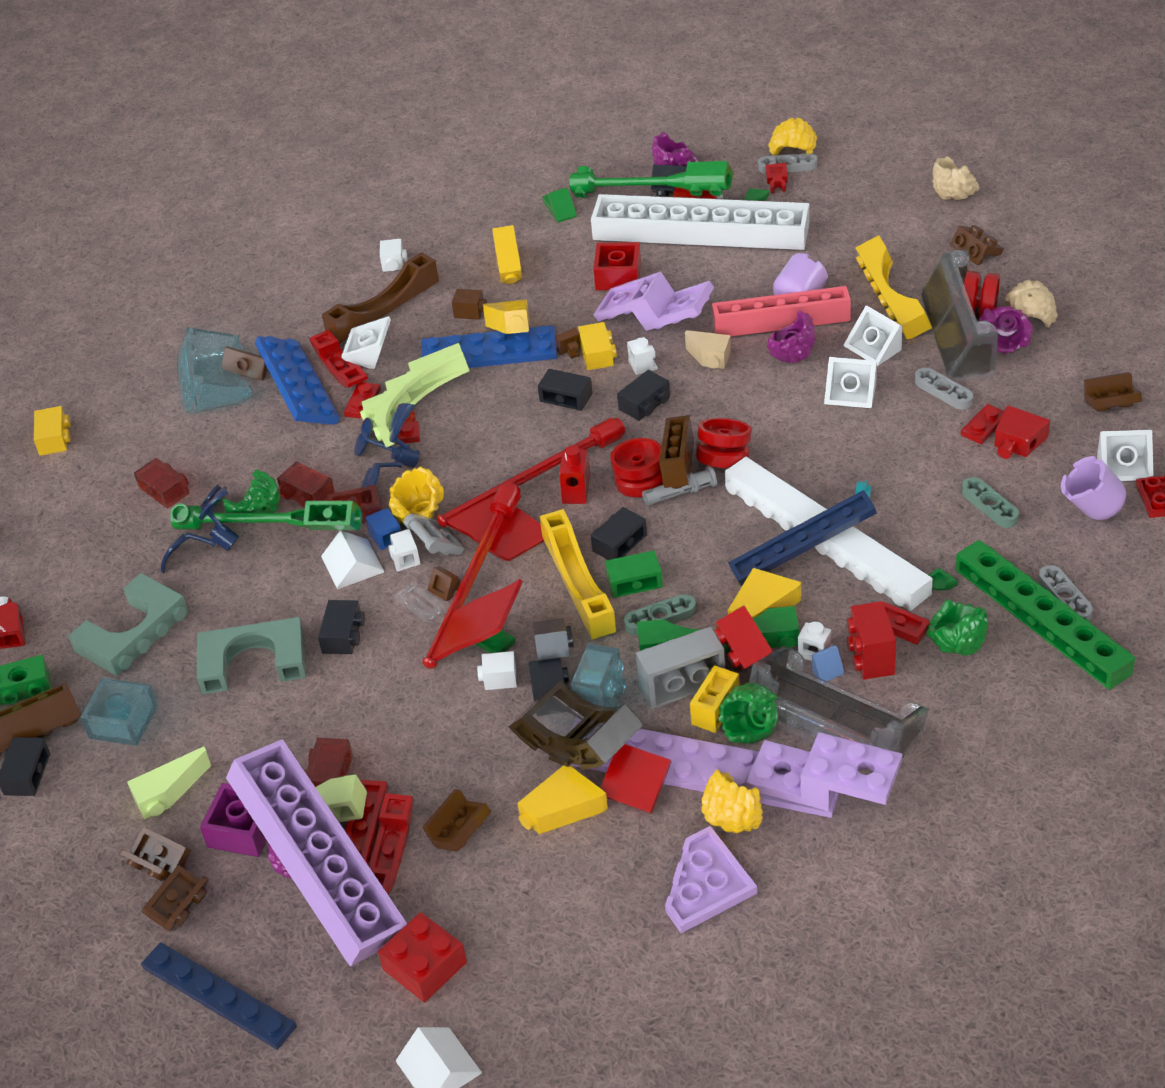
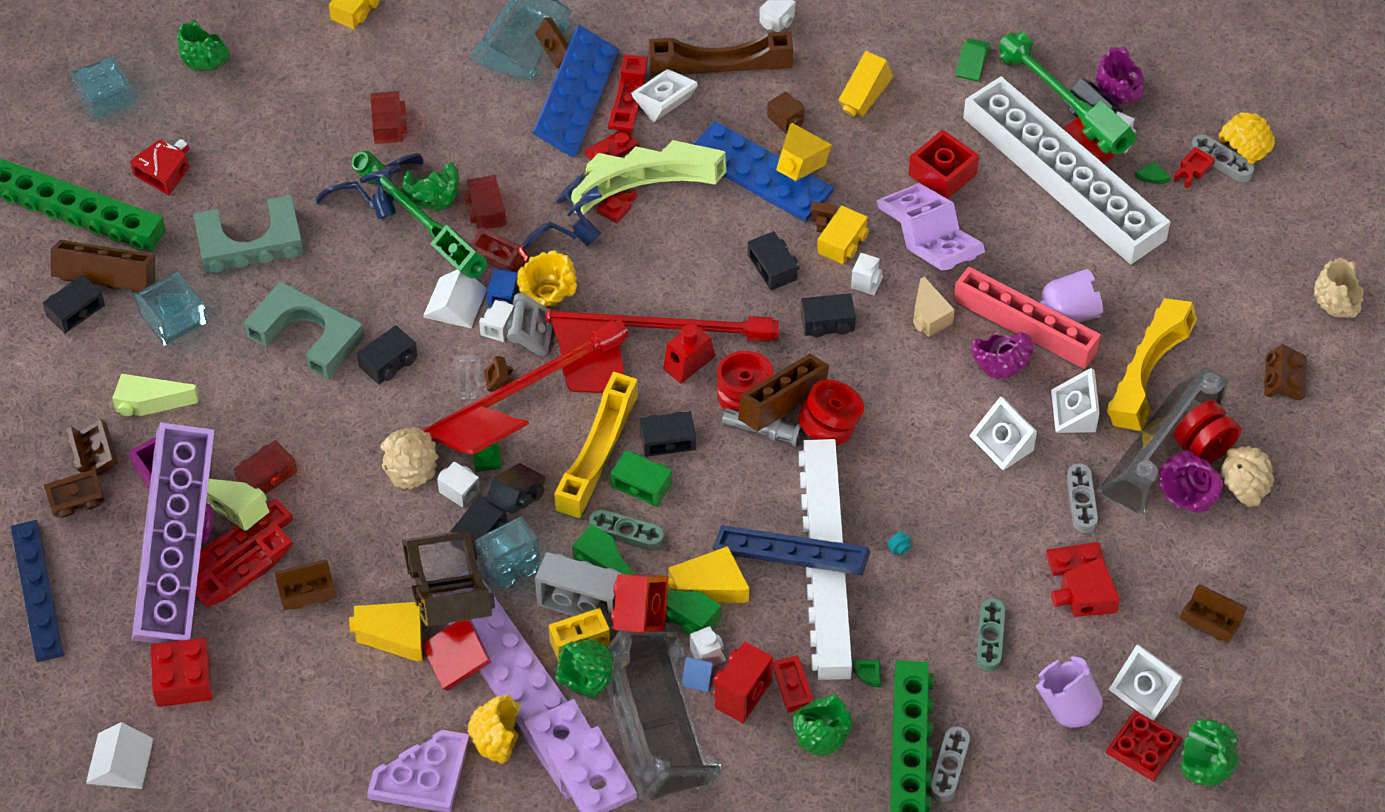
camera: 35 degrees right, 10 degrees up
(439, 679) = (409, 457): none -> tan hair

